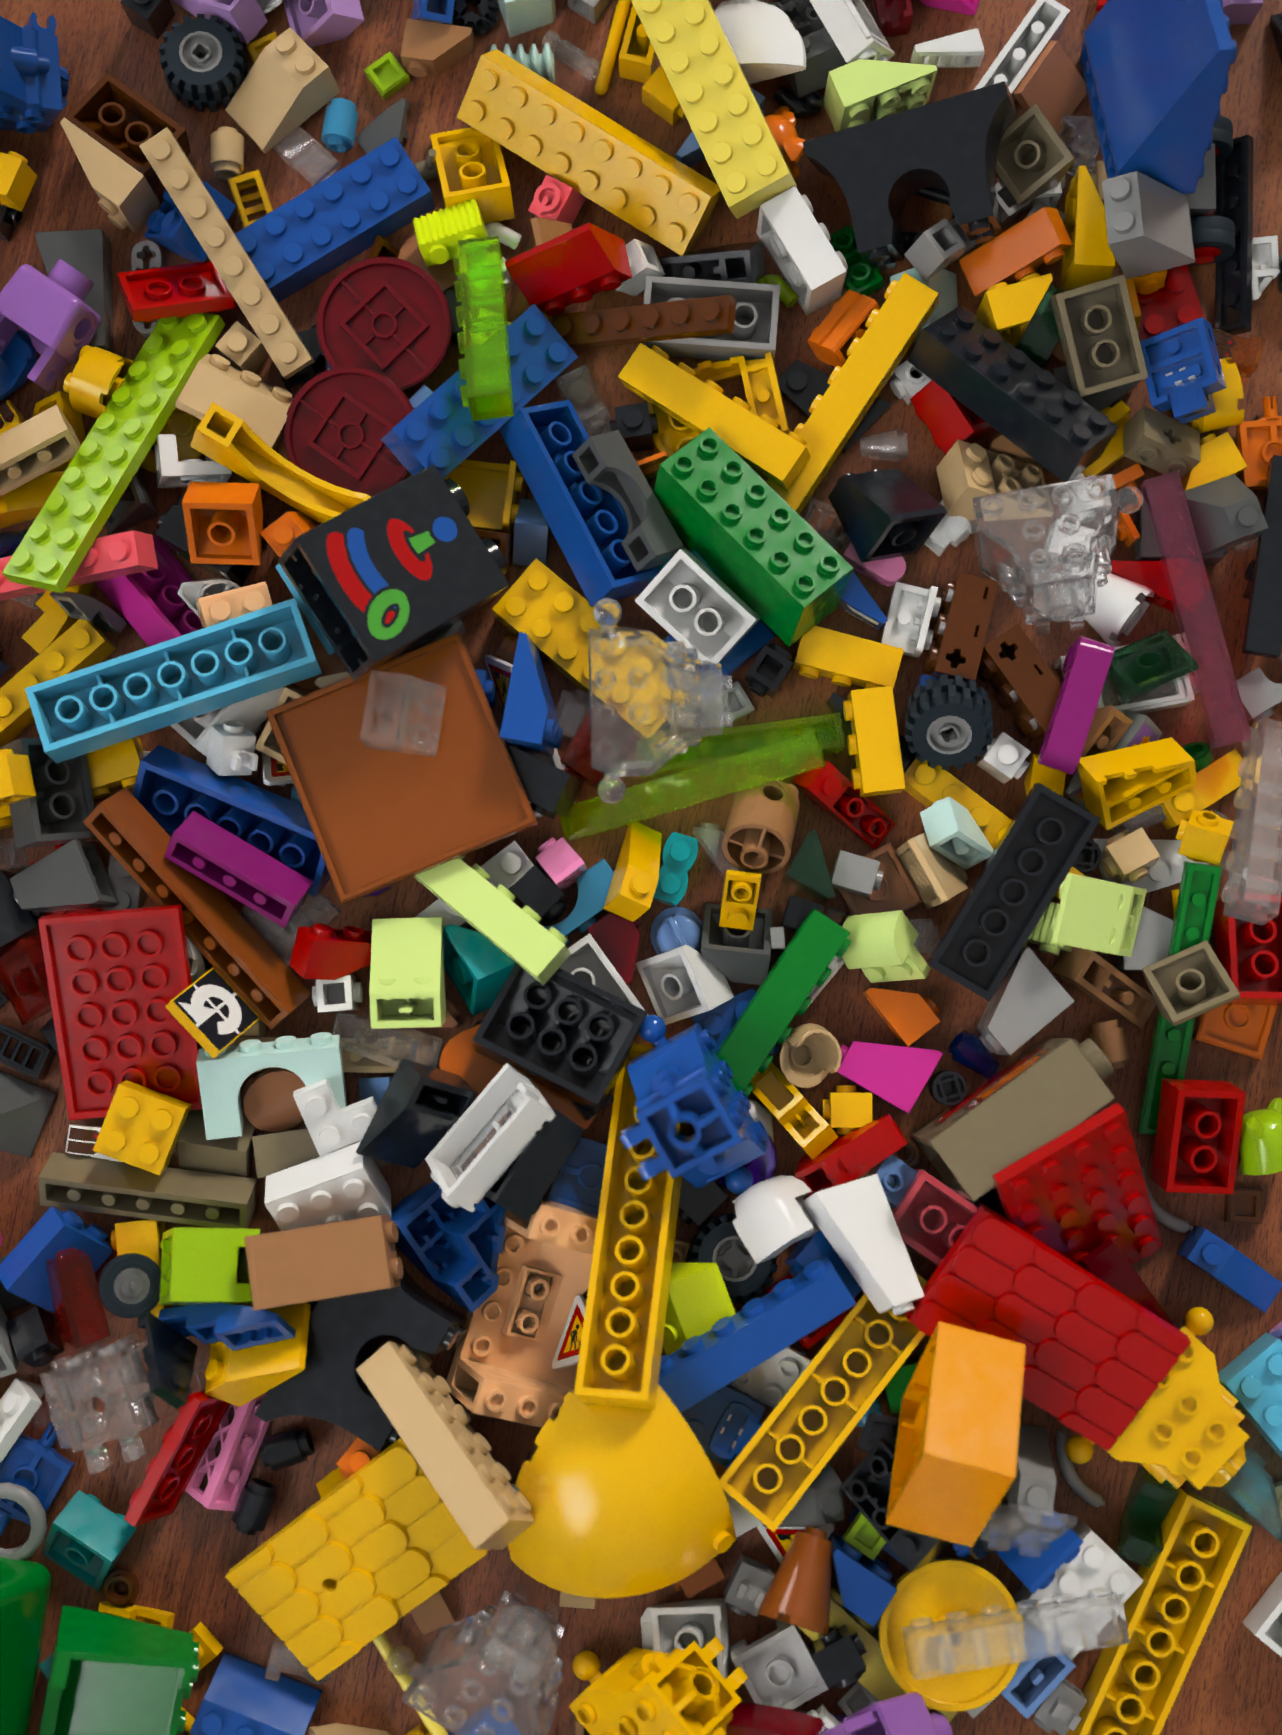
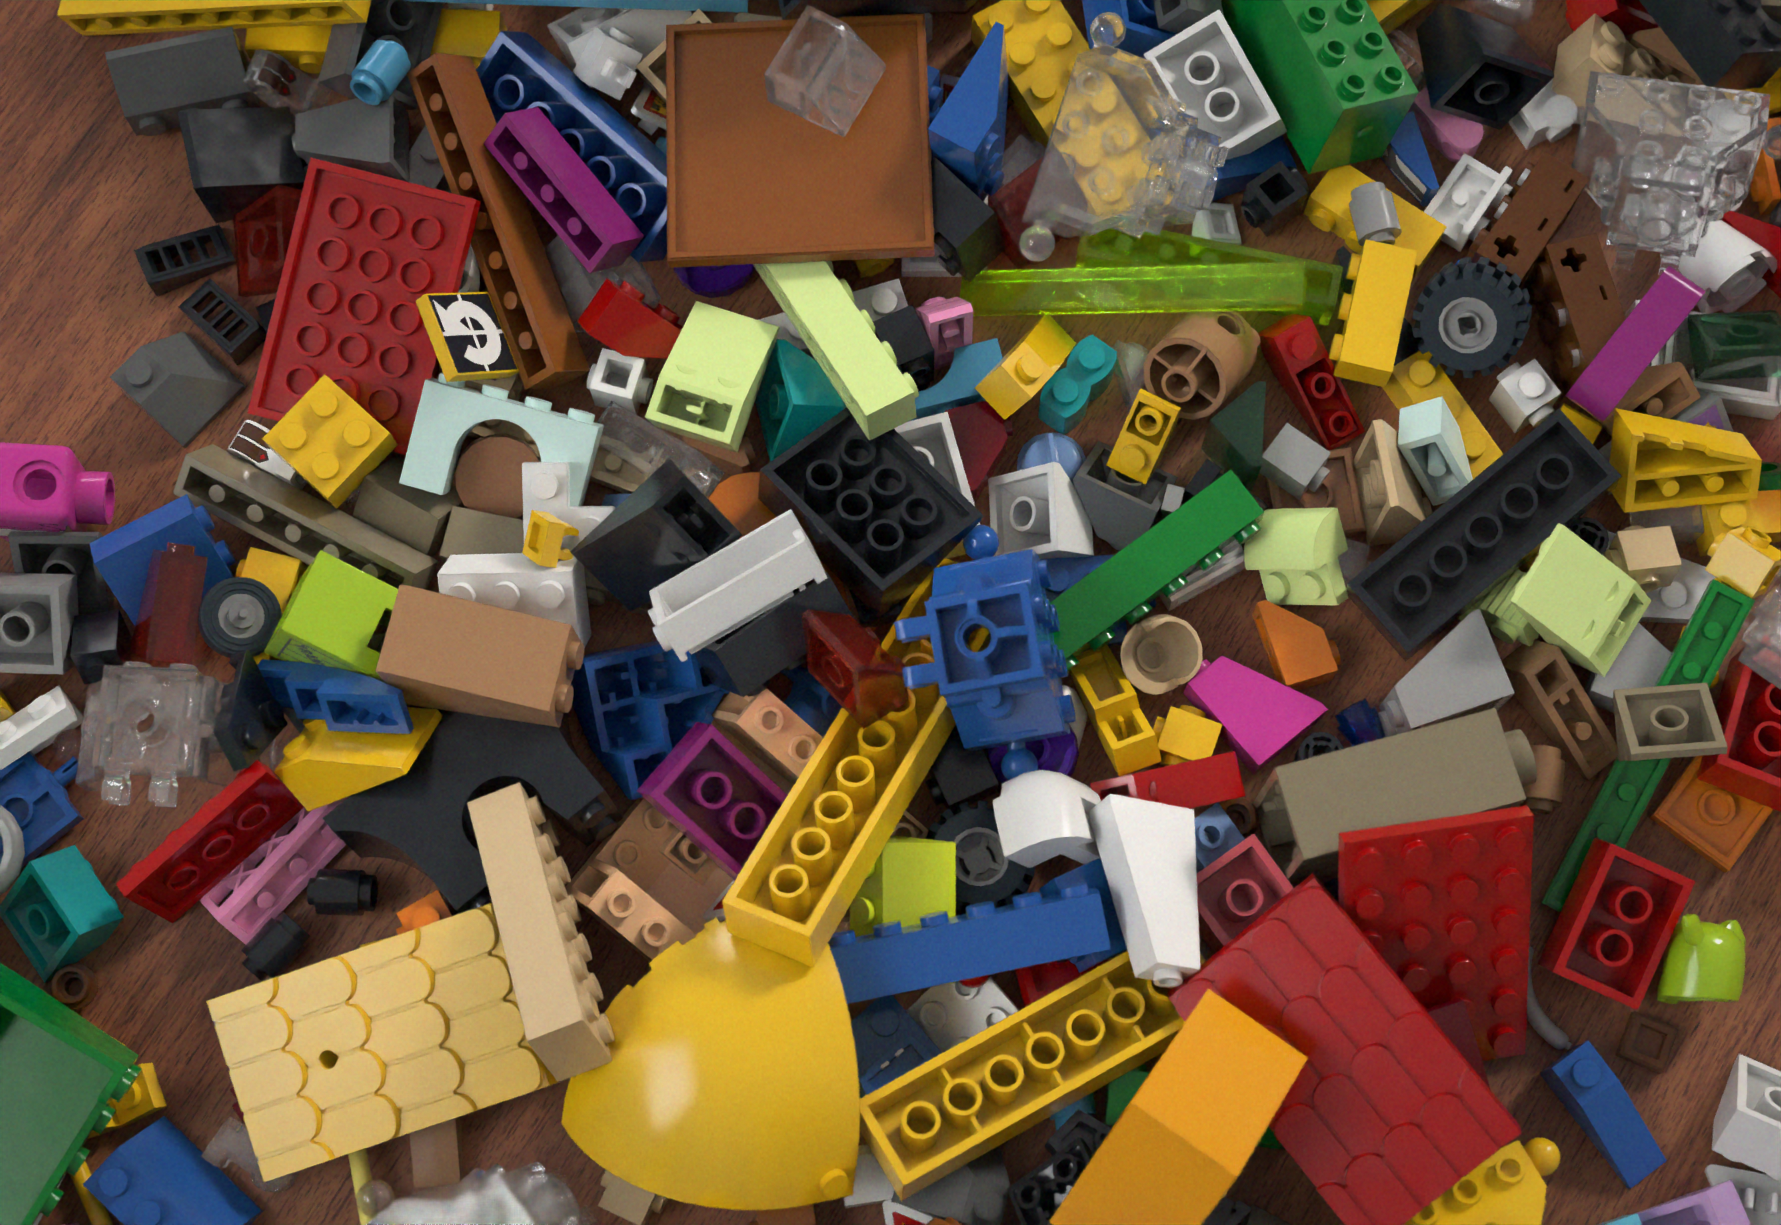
camera: 20 degrees right, 10 degrees down
(62, 830) = (379, 72): none -> dark azure brick
(333, 1147) = (545, 539): none -> yellow tile
(534, 1291) = (714, 796): none -> magenta brick
(599, 1168) = (853, 666): none -> clear red slope
(849, 665) = (1374, 214): none -> light grey brick

